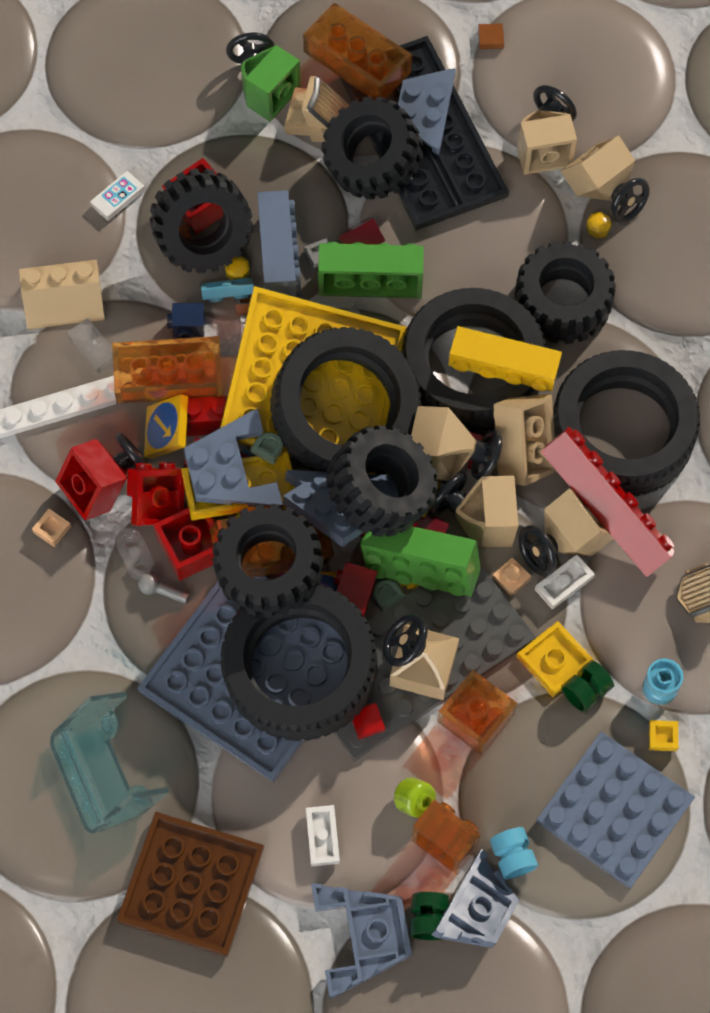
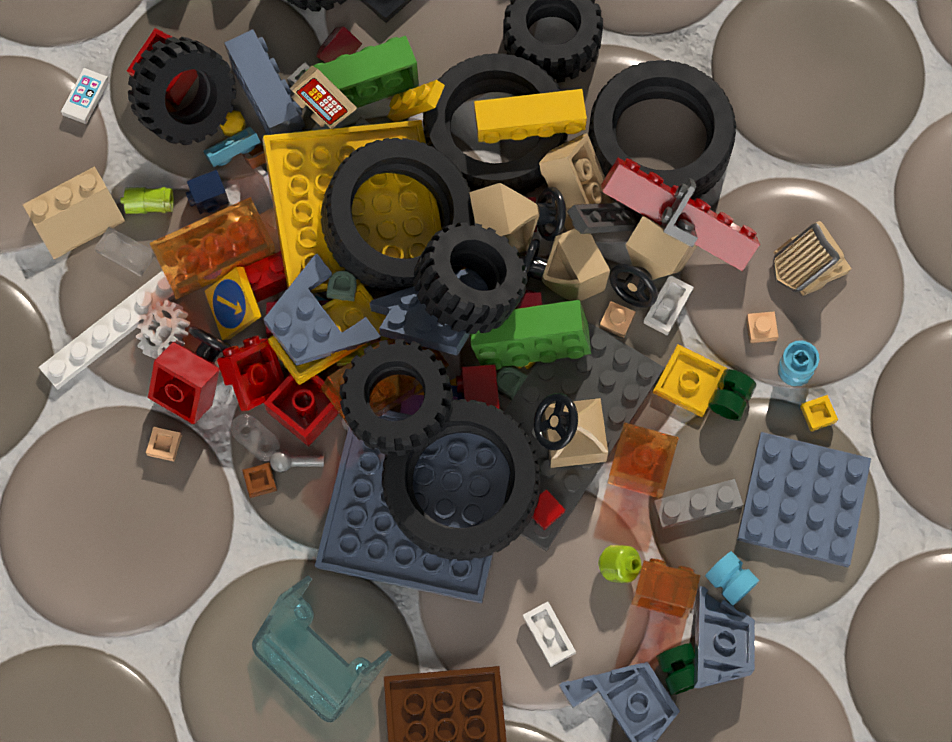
camera: 20 degrees left, 5 degrees up
(95, 422) = (161, 328): none -> white gear
(122, 593) = (259, 480): none -> dark orange tile
(133, 308) = (143, 200): none -> lime piece
(321, 272) = (322, 97): none -> slope
(408, 308) = (415, 101): none -> yellow plate
(513, 774) = (698, 504): none -> light grey plate
(532, 476) = (603, 218): none -> dark grey plate
(601, 514) = (682, 229): none -> dark grey bracket
(644, 636) = (762, 327): none -> light nougat plate

